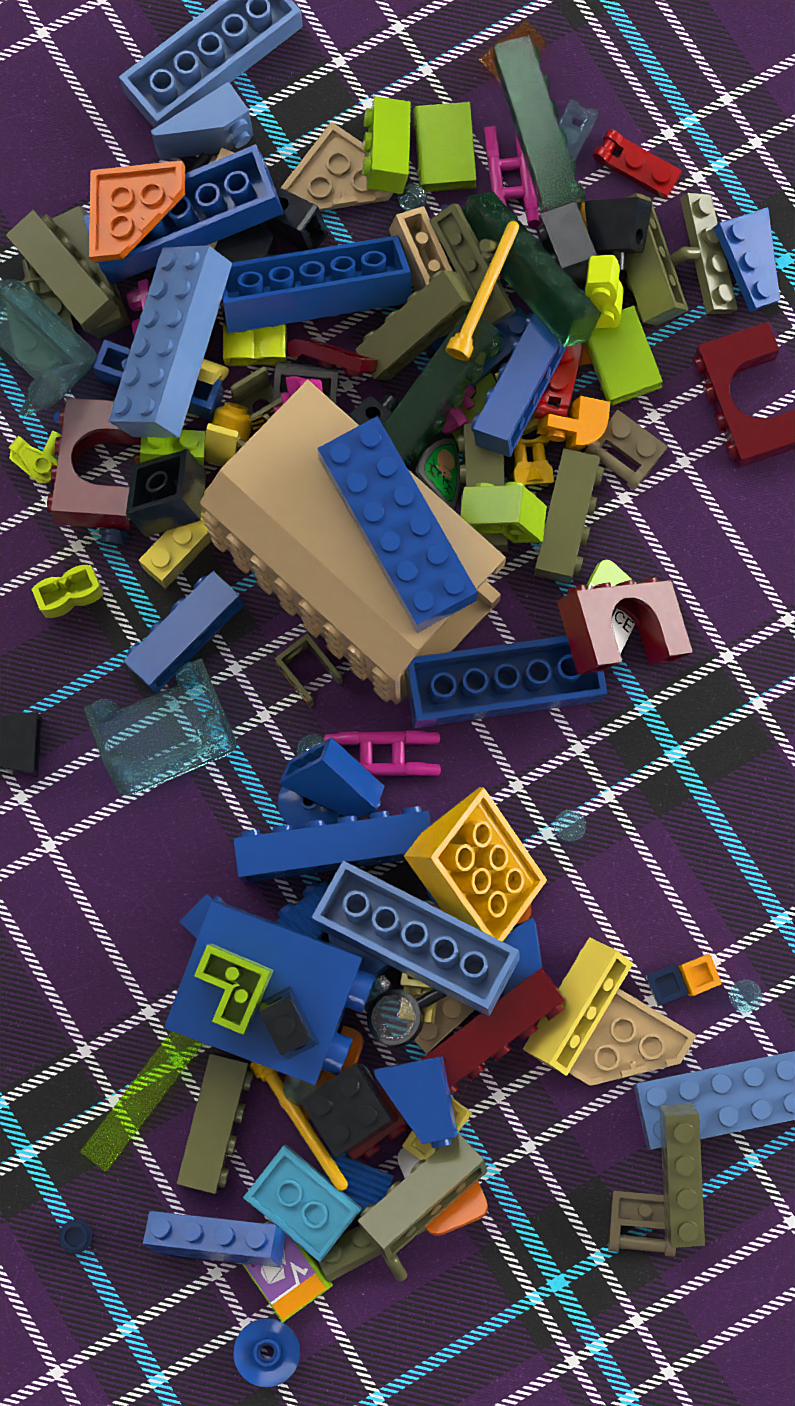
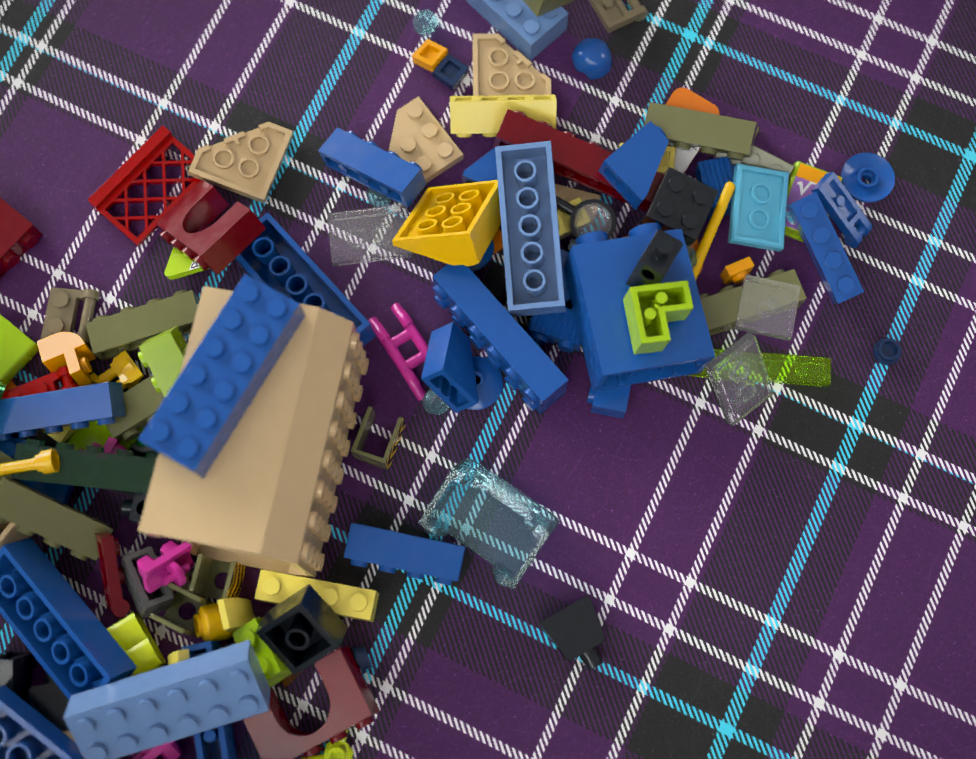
camera: 125 degrees left, 5 degrees down
(60, 594) = (421, 658): neon yellow brick -> none
(136, 1053) = (740, 378): none -> clear tile
(189, 1132) = (767, 307): none -> clear plate
(247, 1292) = (842, 209): none -> blue plate
(252, 1138) = (736, 271): none -> light orange plate
(534, 788) = (366, 235): none -> clear tile
(591, 1151) = (592, 58): none -> blue hair
(597, 831) = (373, 166): none -> blue brick
(599, 897) = (423, 140): none -> tan plate
(690, 708) = (244, 161): none -> tan plate
(747, 589) = (129, 175): none -> red fence

